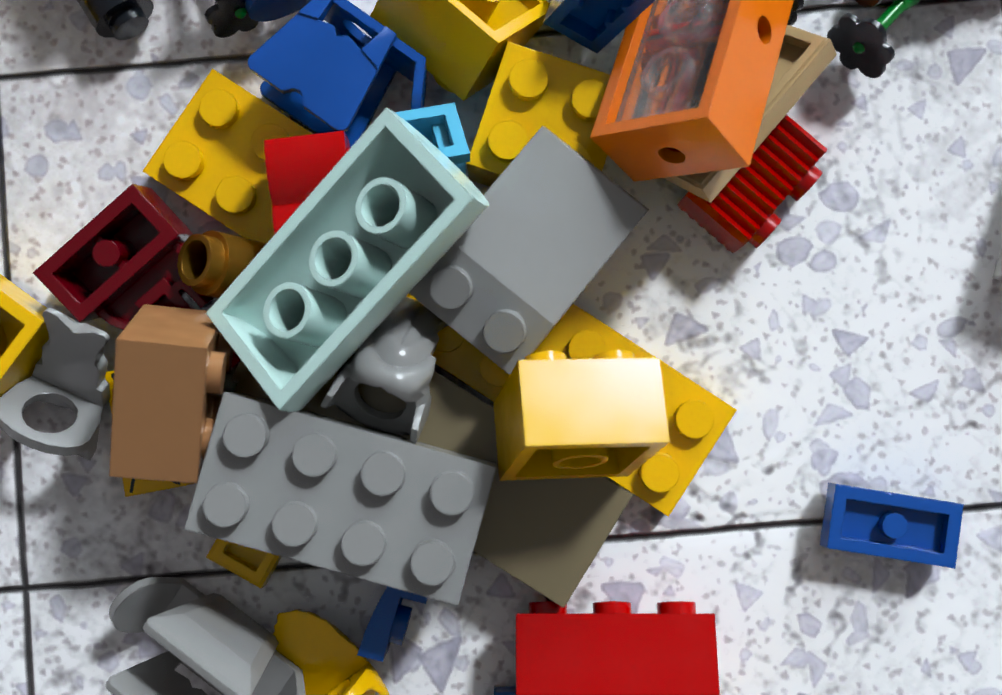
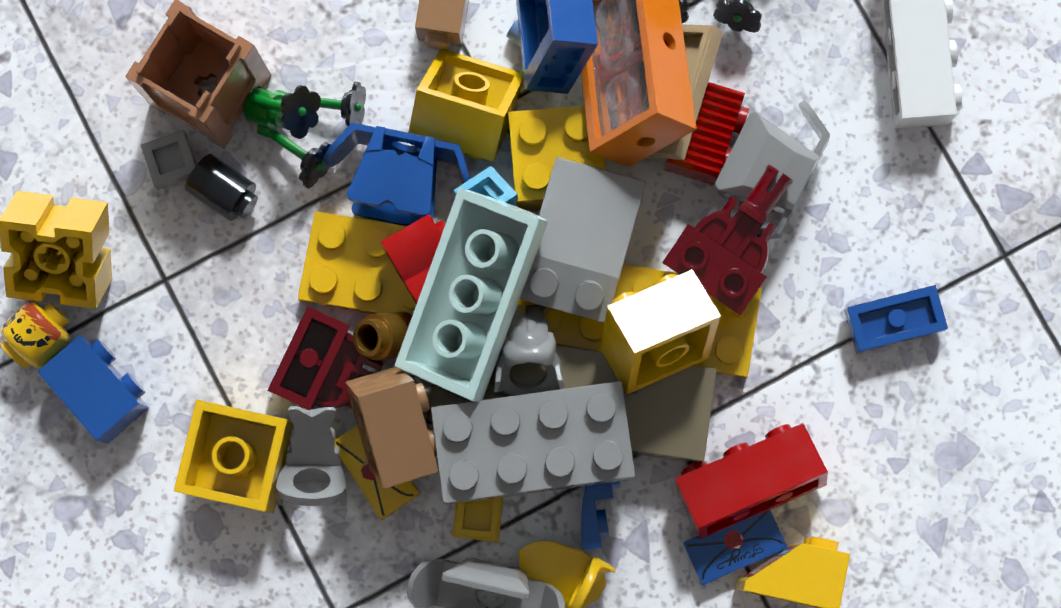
camera: 20 degrees left, 5 degrees down
(717, 350) = (726, 249): none -> dark red brick
(821, 261) = (766, 144): none -> light grey piece

